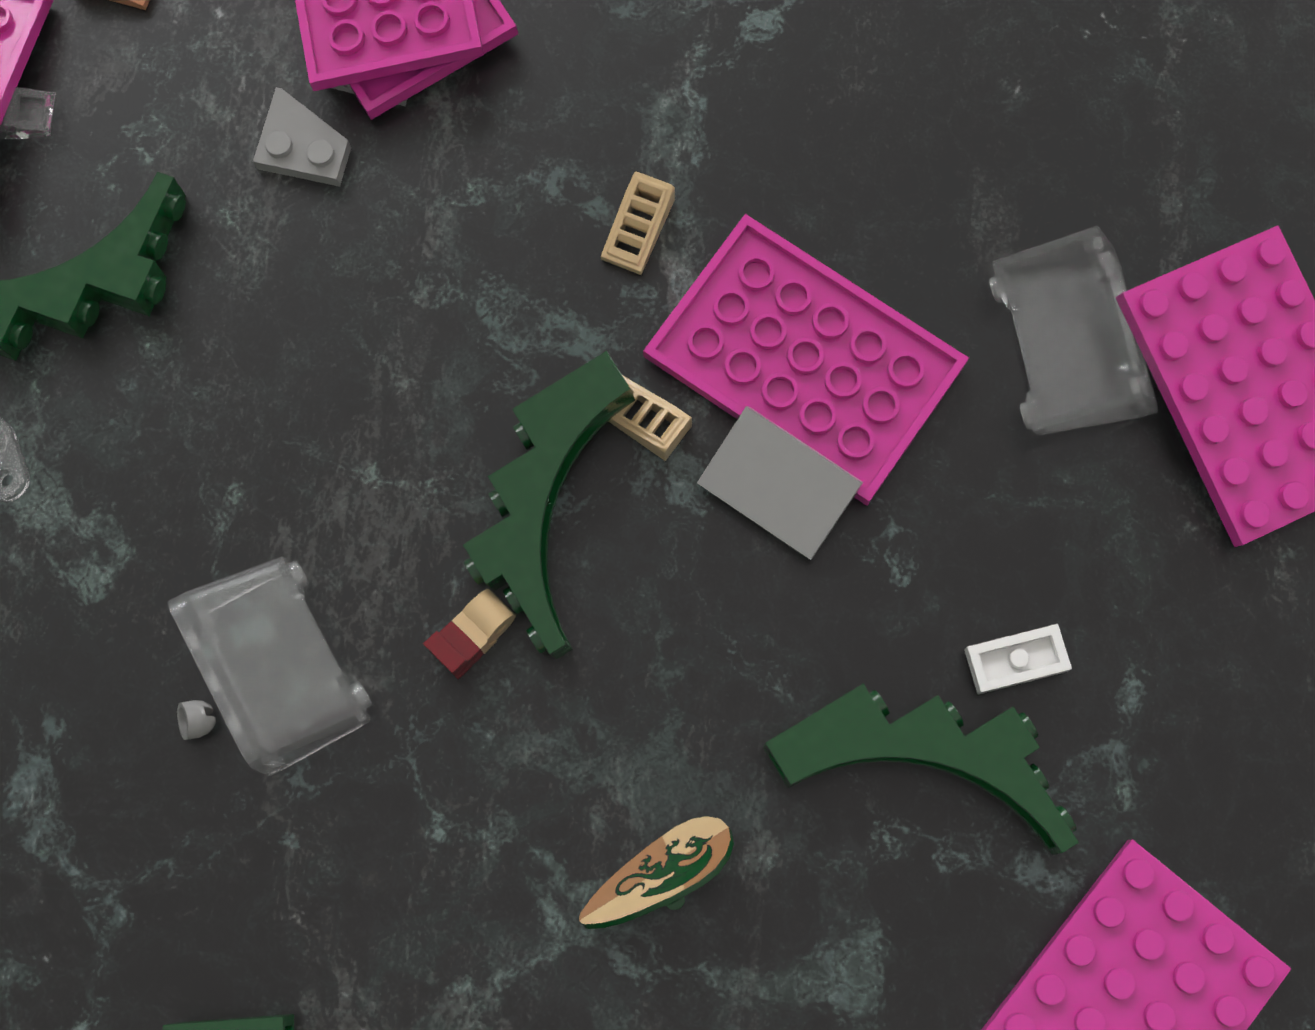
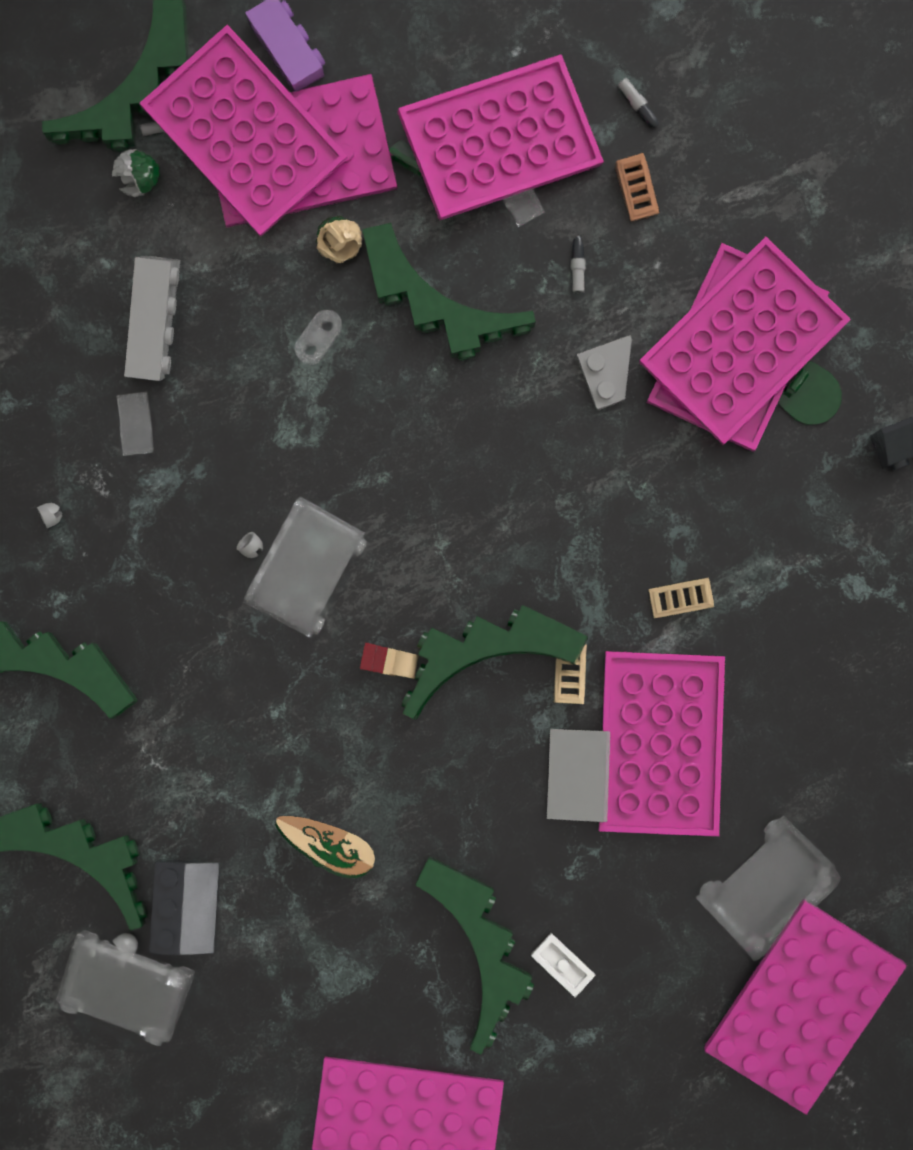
camera: 55 degrees right, 10 degrees up
(150, 98) = (578, 265): none -> light grey piece

